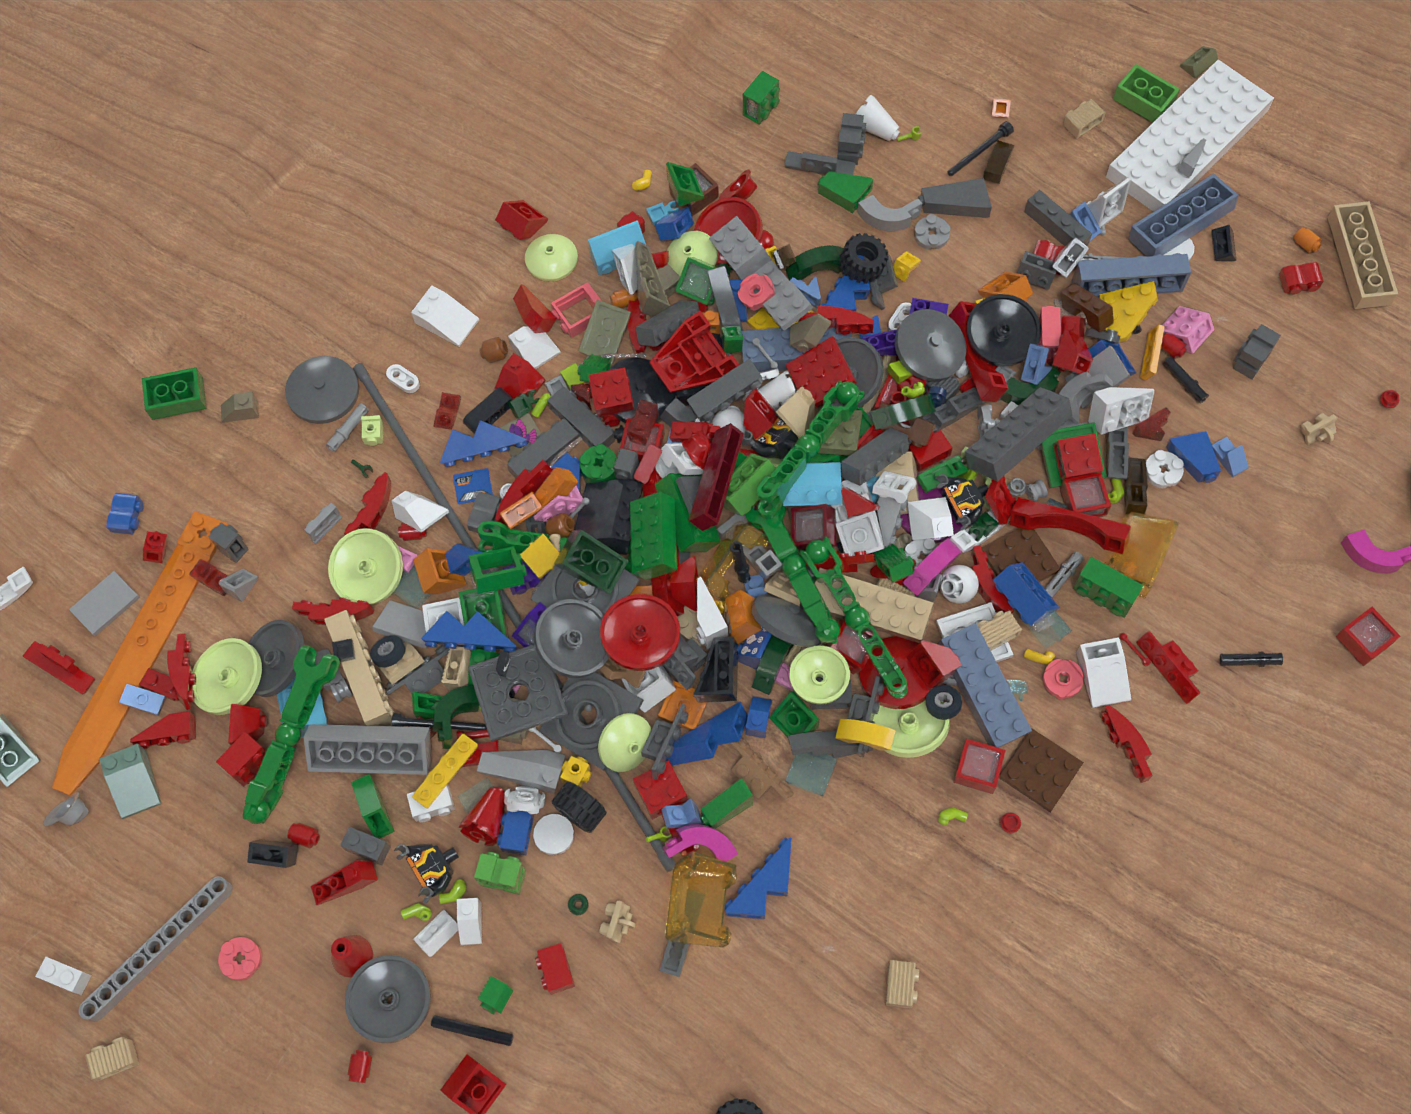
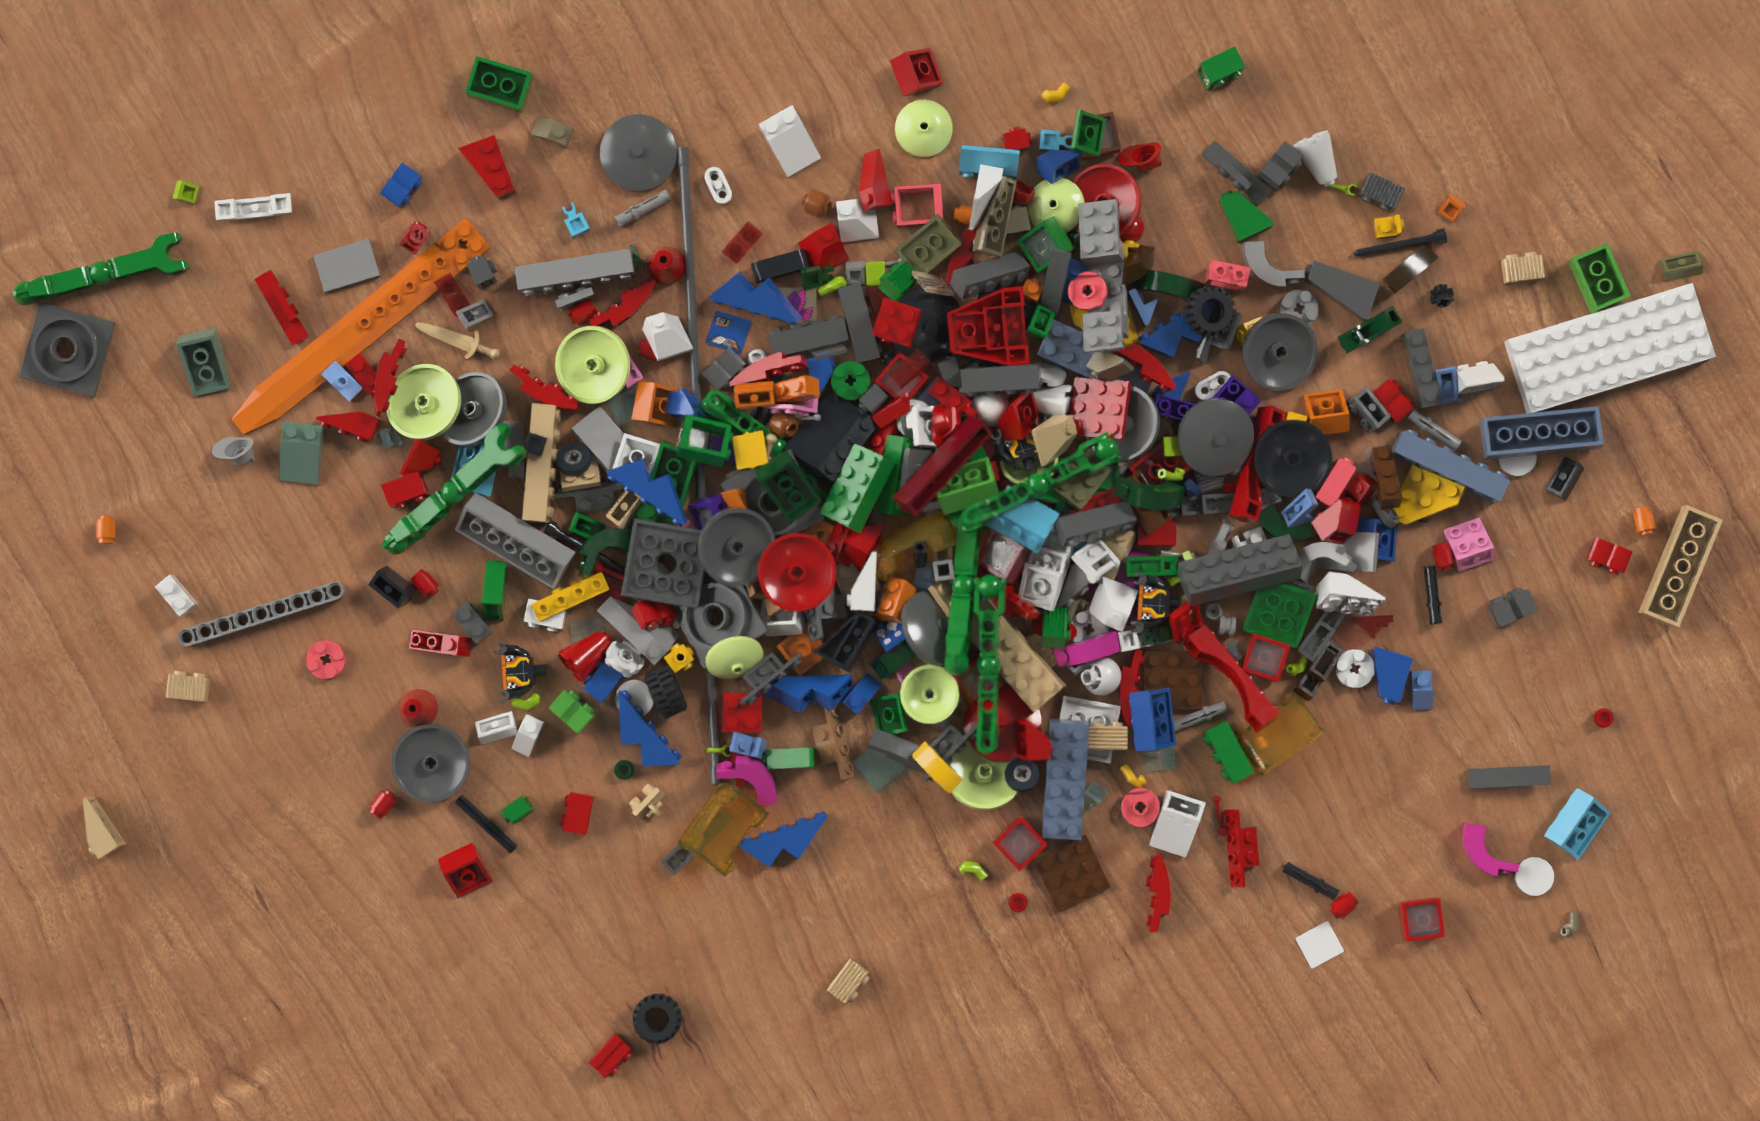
camera: 20 degrees right, 20 degrees up
(195, 458) = (490, 164): none -> red wedge
(210, 725) = (390, 438): none -> clear light blue tile
(236, 612) = (458, 340): none -> tan sword
(294, 467) = (576, 222): none -> medium azure plate
(300, 506) = (575, 272): none -> light grey brick
(334, 532) = (582, 312): none -> red brick
(372, 430) = (669, 220): yellowish green brick -> none
(389, 457) = (667, 272): none -> red cone
(418, 910) = (490, 700): lime arm -> none
(503, 663) = (664, 536): black tile -> none
(530, 743) = (654, 614): none -> red brick
(548, 597) = (735, 498): none -> orange slope
(572, 857) = (637, 730): none -> blue slope
(756, 342) = (1059, 341): light grey hinge -> none
(852, 223) = (1220, 276): none -> coral window
(856, 503) = (1051, 560): red slope -> none
(938, 265) = (1295, 353): none -> dark grey dish
(940, 121) = (1381, 192): none -> dark grey brick
(962, 142) = (1388, 226): none -> yellow bracket
(999, 214) = (1369, 329): none -> dark green arch
(1036, 165) = (1441, 295): none -> black gear
(1069, 257) = (1400, 419): light grey slope -> none
(1078, 456) = (1279, 620): red piece -> none
(1152, 352) = (1420, 551): light orange tile -> none
(1189, 162) = (1580, 386): light grey slope -> none
(1294, 663) = (1343, 905): none -> red brick
(1296, 711) = (1319, 944): none -> white sticker
(1322, 430) = (1518, 715): tan hips -> none
(1351, 482) = (1509, 776): none -> dark grey slope

